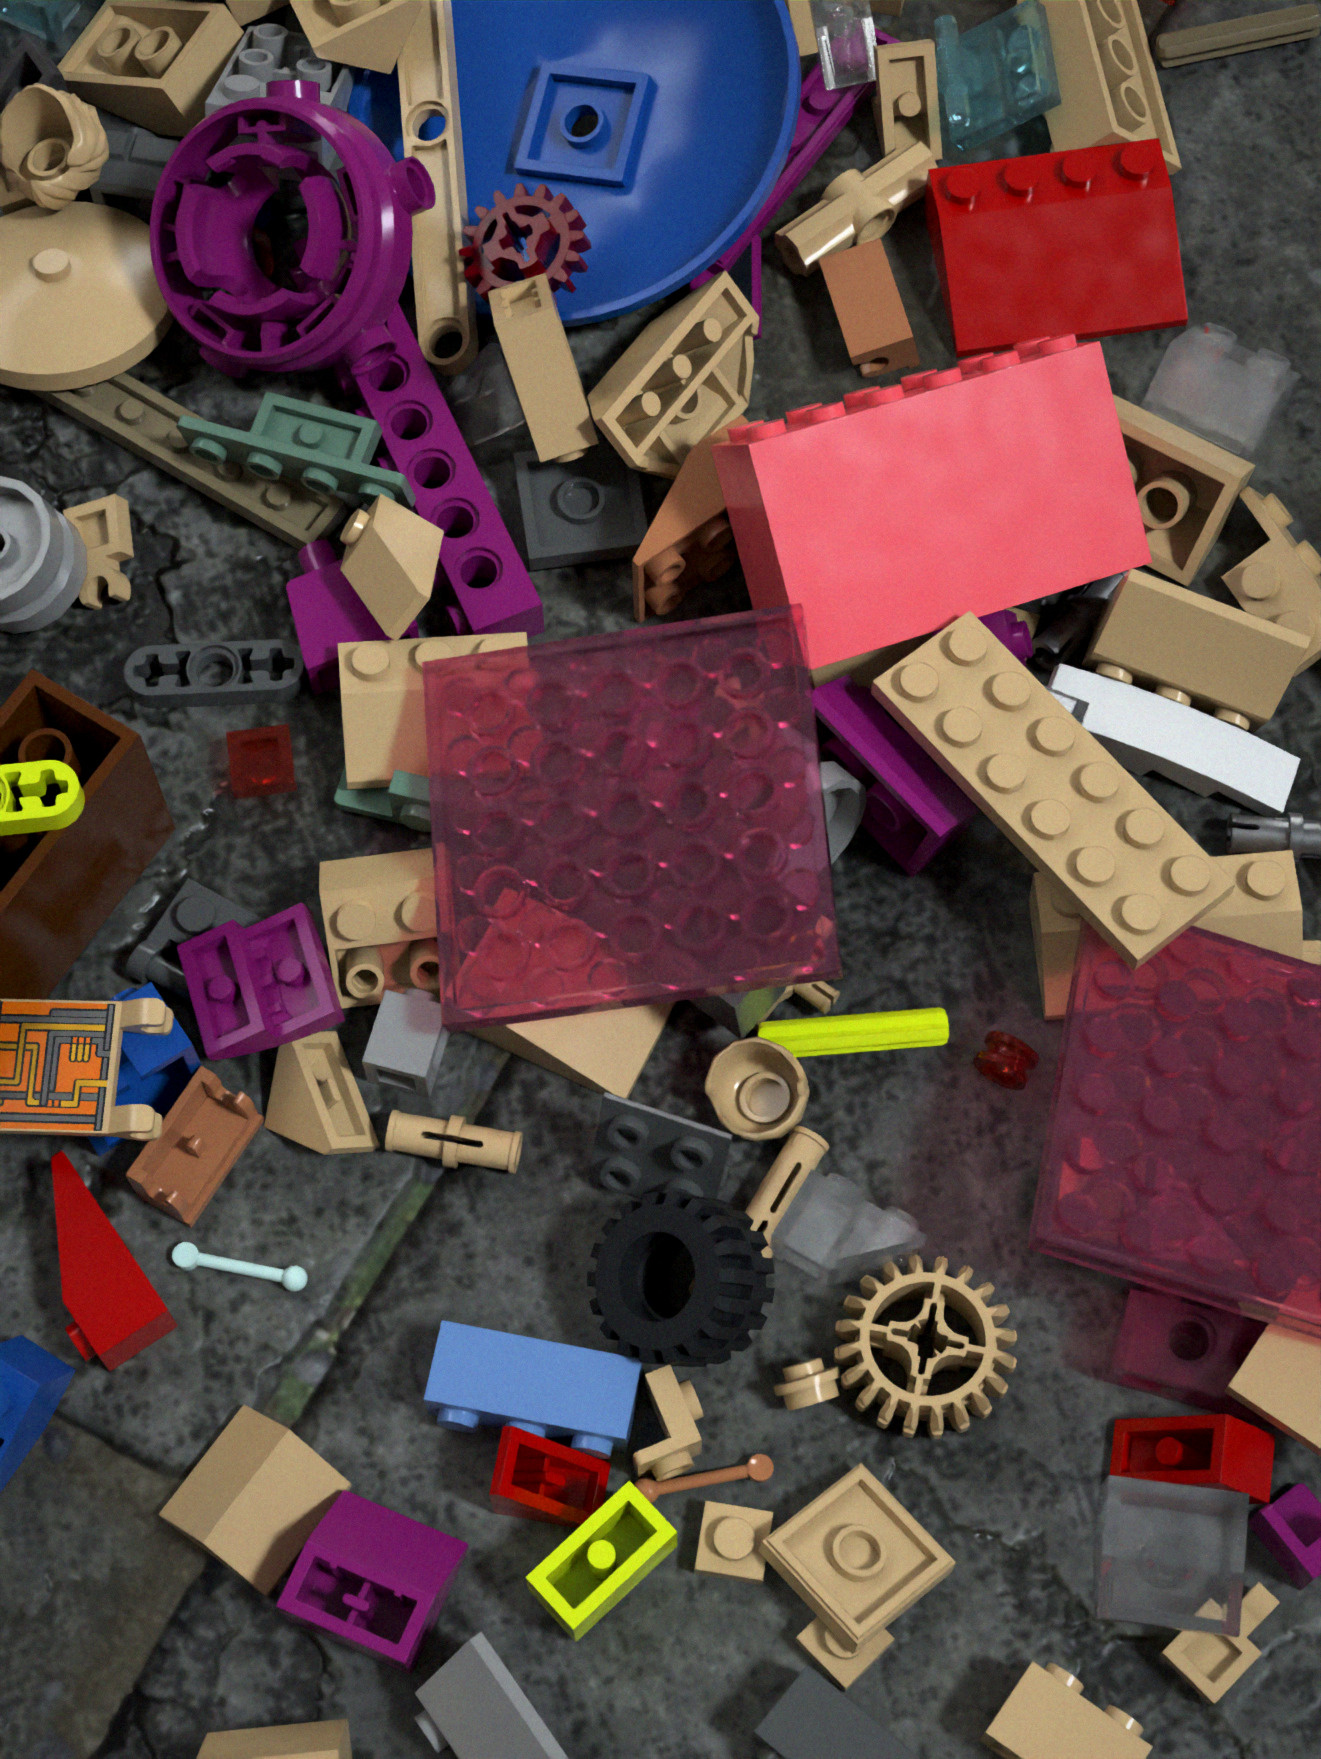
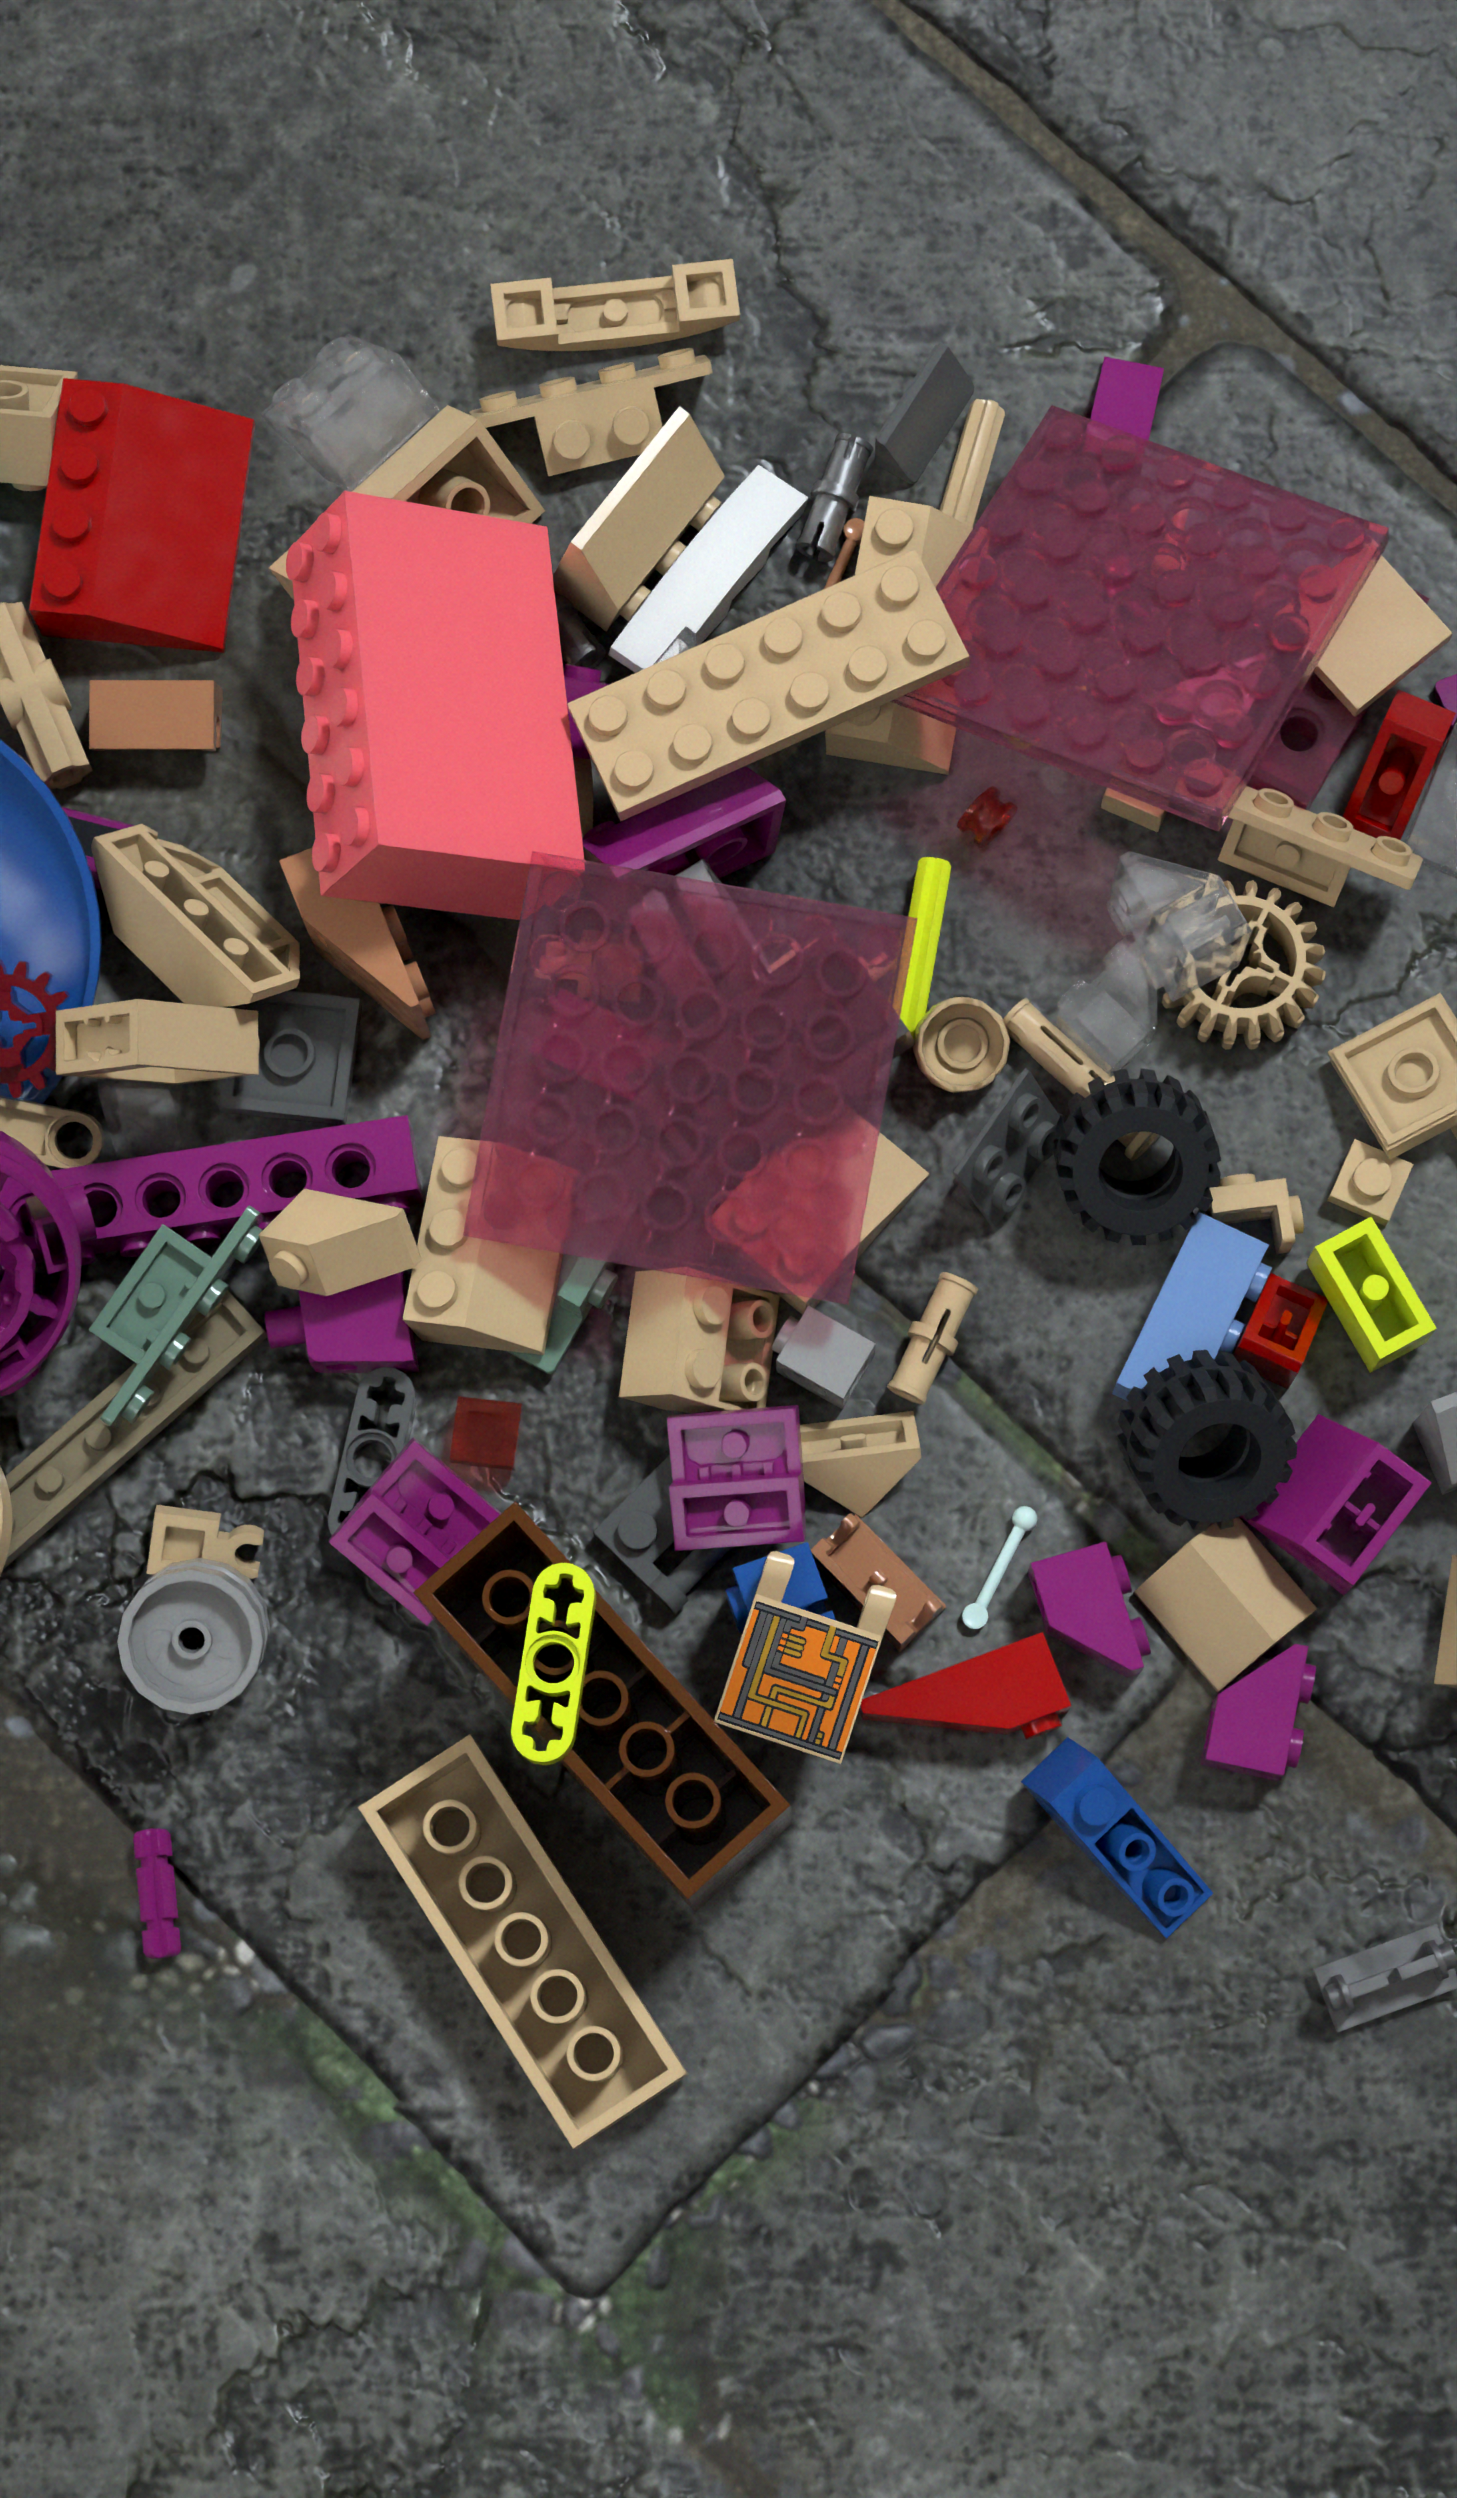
camera: 70 degrees left, 10 degrees up
(129, 1553) = (1255, 1718): none -> magenta slope
(172, 712) = (412, 1524): none -> magenta slope
(209, 1356) = (1086, 1609): none -> magenta slope
(356, 1428) = (1231, 1476): none -> black tyre
(757, 1470) = (1306, 1145): nougat hinge -> none
(807, 1384) = (1247, 1077): tan plate -> none
(926, 1250) = (1179, 920): none -> clear slope
(1069, 1380) = (1309, 849): none -> tan bracket

